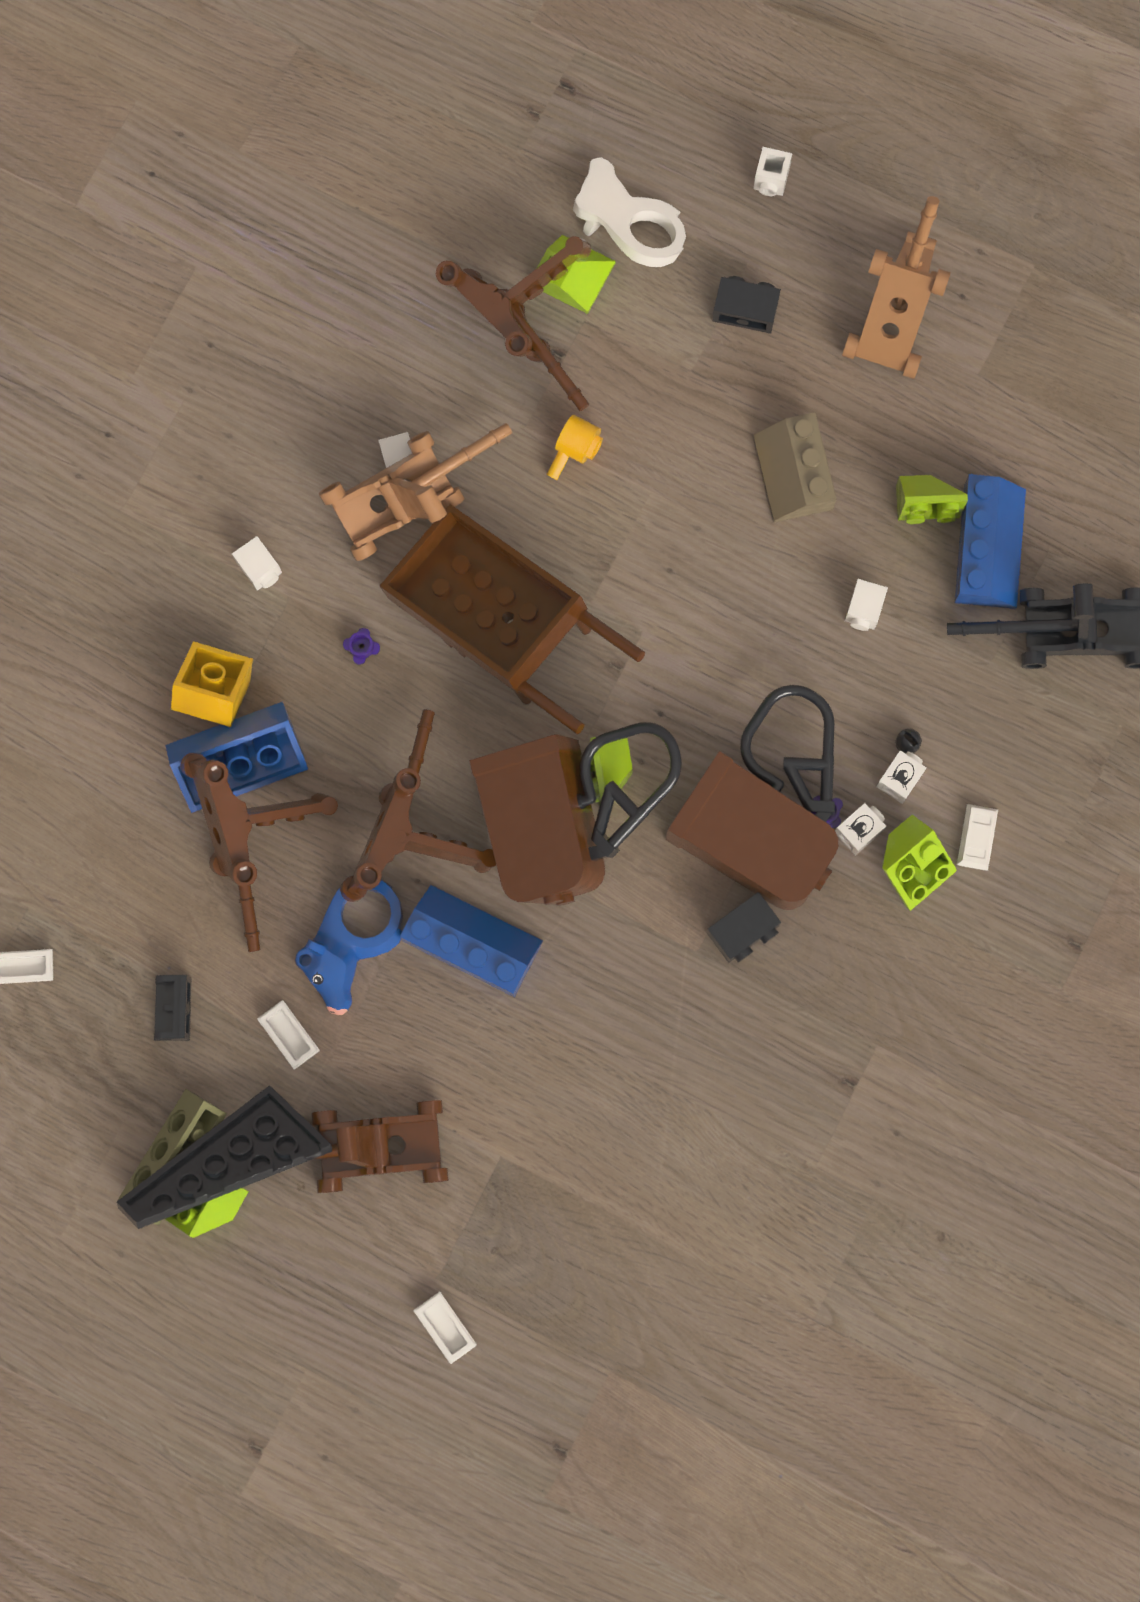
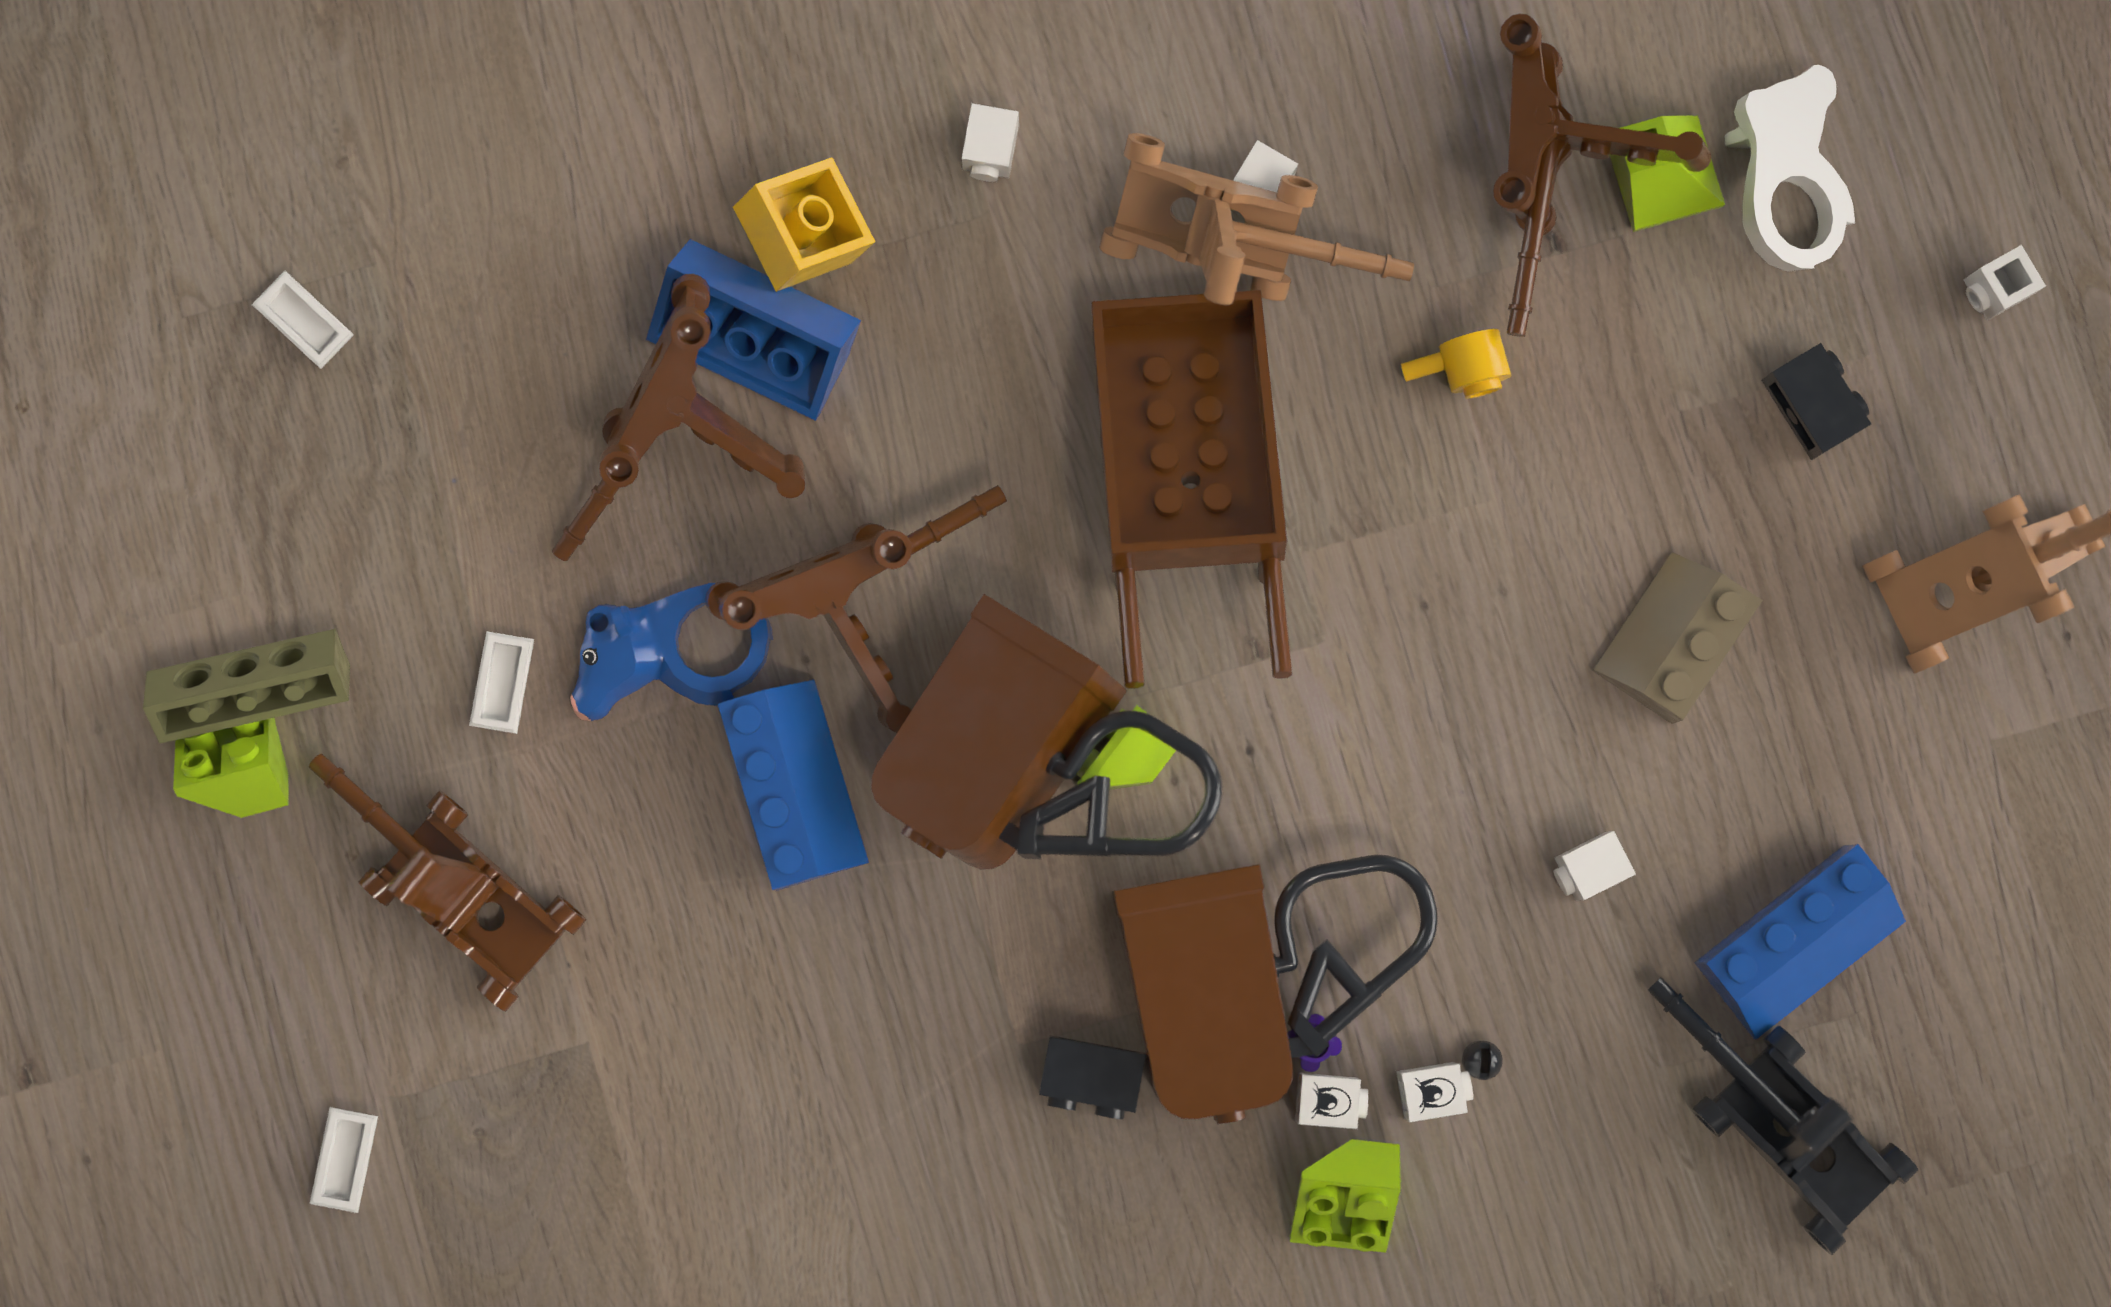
camera: 40 degrees right, 5 degrees up
(172, 1008) = (412, 529): black hinge -> none
(241, 1150) = (320, 756): black wing -> none
(361, 637) = (1001, 334): dark purple plate -> none
(928, 498) = (1786, 821): lime slope -> none
(977, 837) = (1446, 1239): white tile -> none

